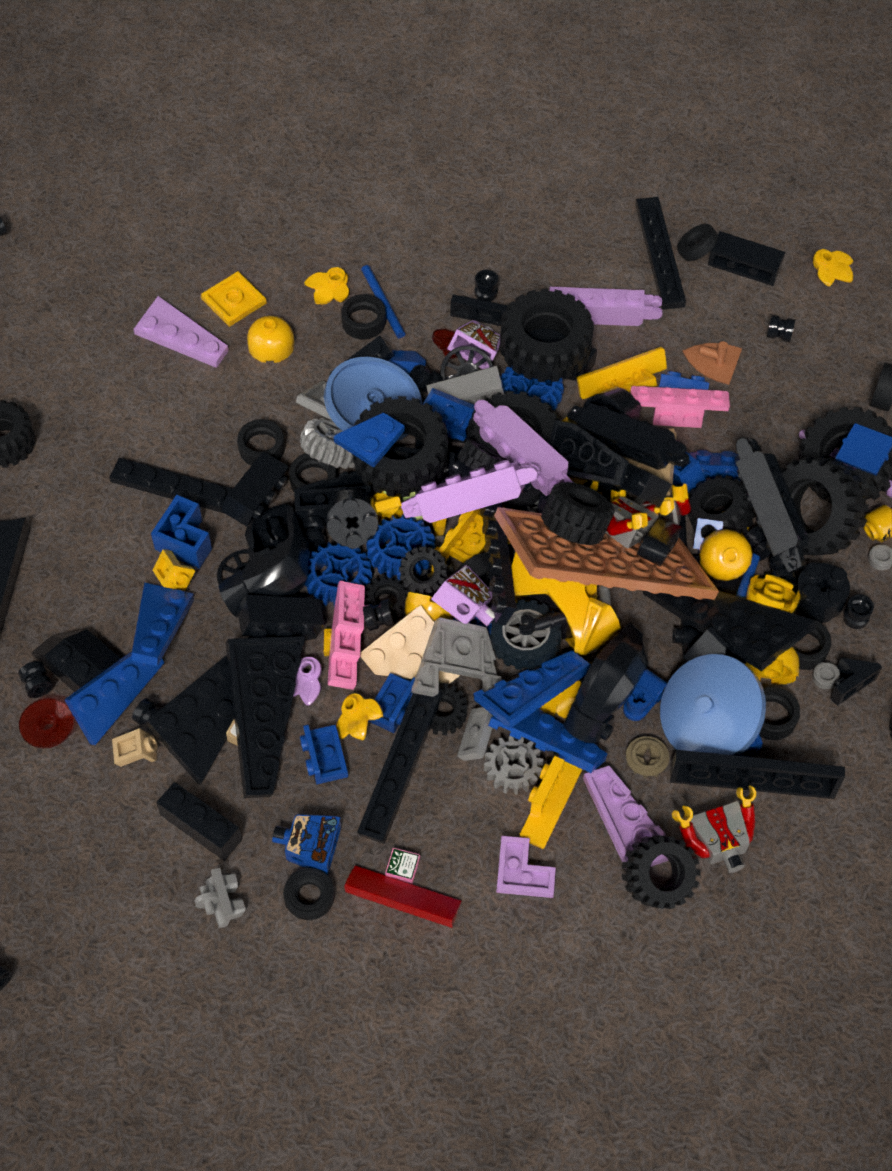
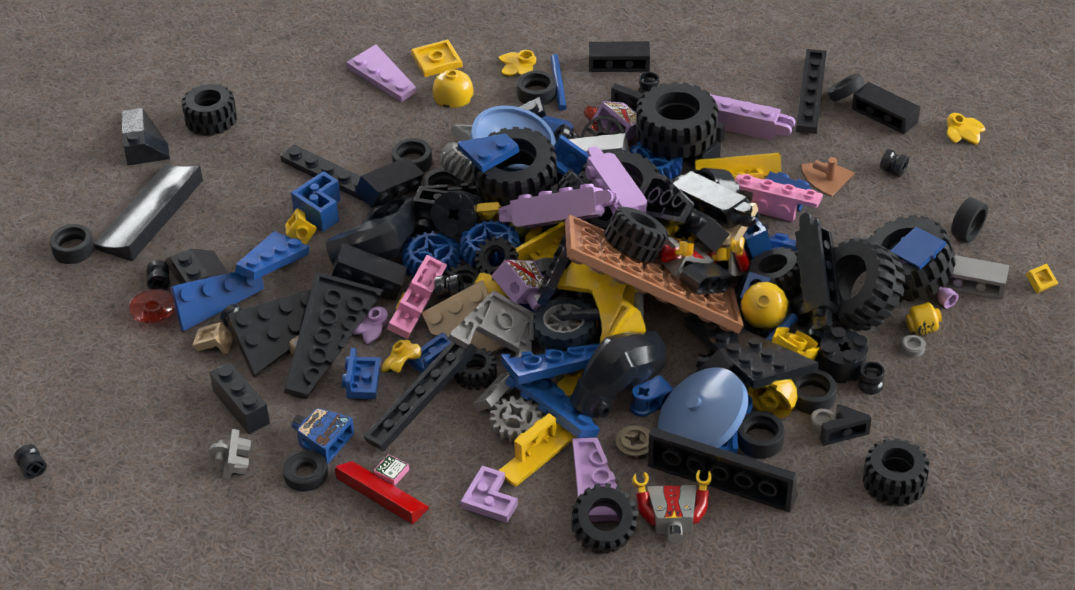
camera: 20 degrees right, 15 degrees down
(439, 253) = (619, 56): none -> black brick

